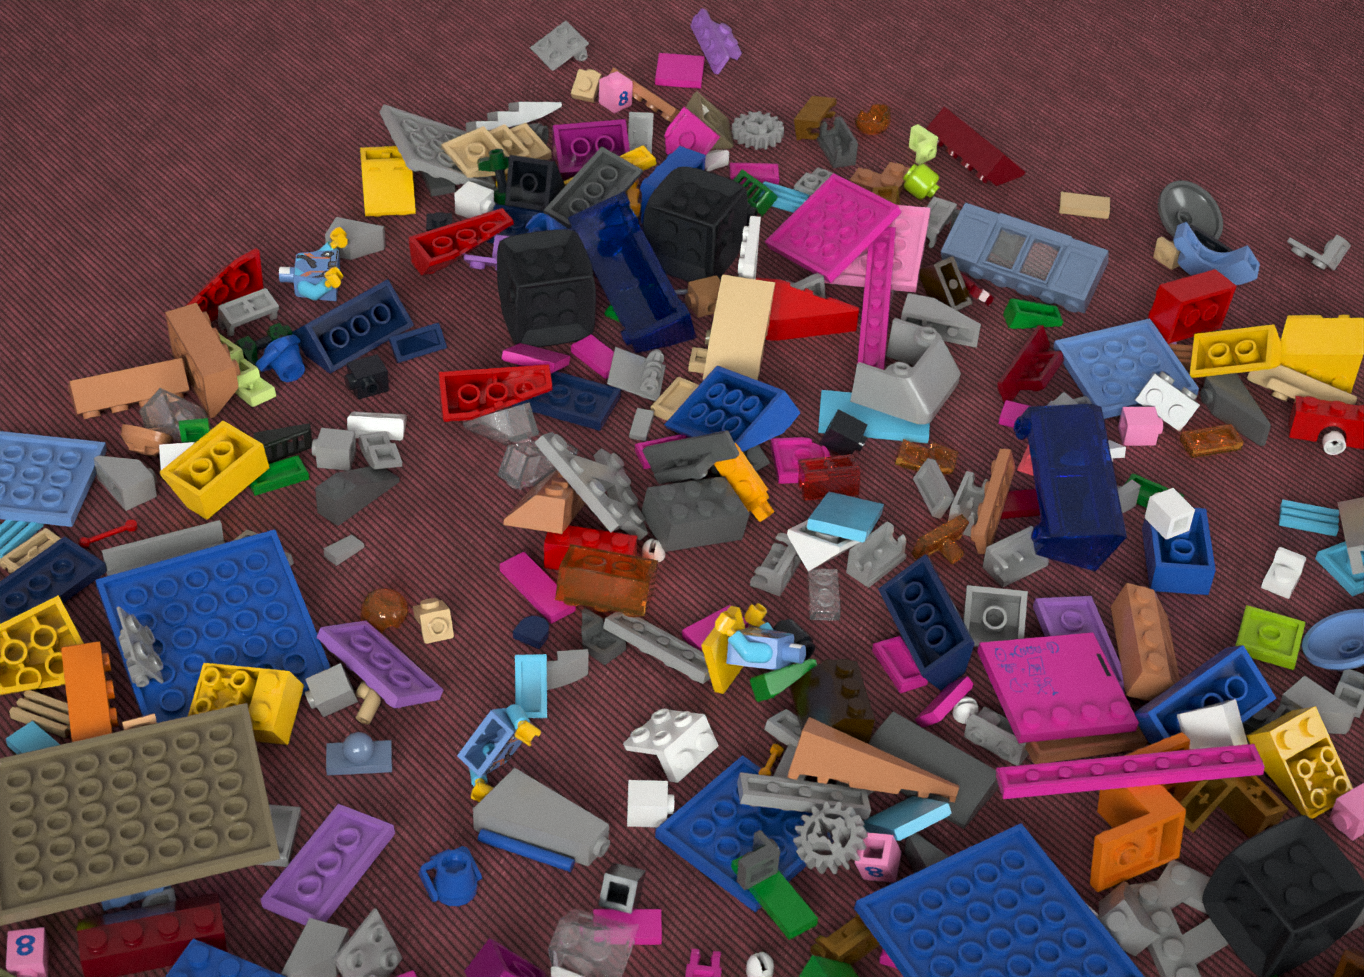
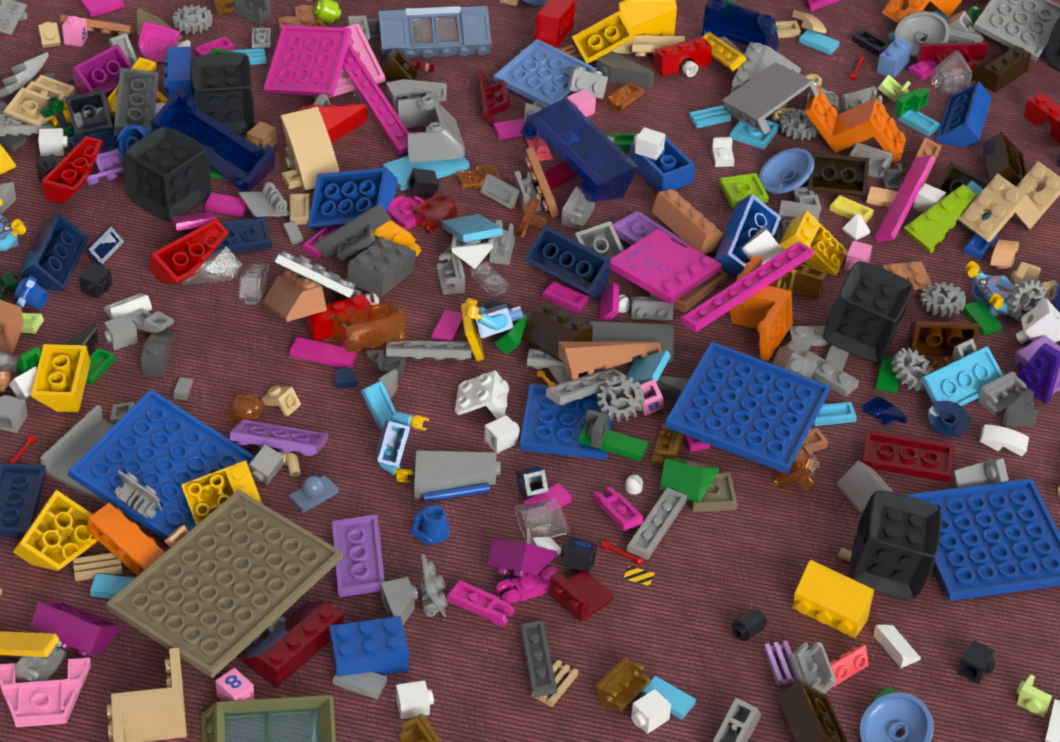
camera: 35 degrees left, 0 degrees up
(749, 249) = (280, 100): white plate -> none
(1027, 314) = (462, 67): green slope -> none

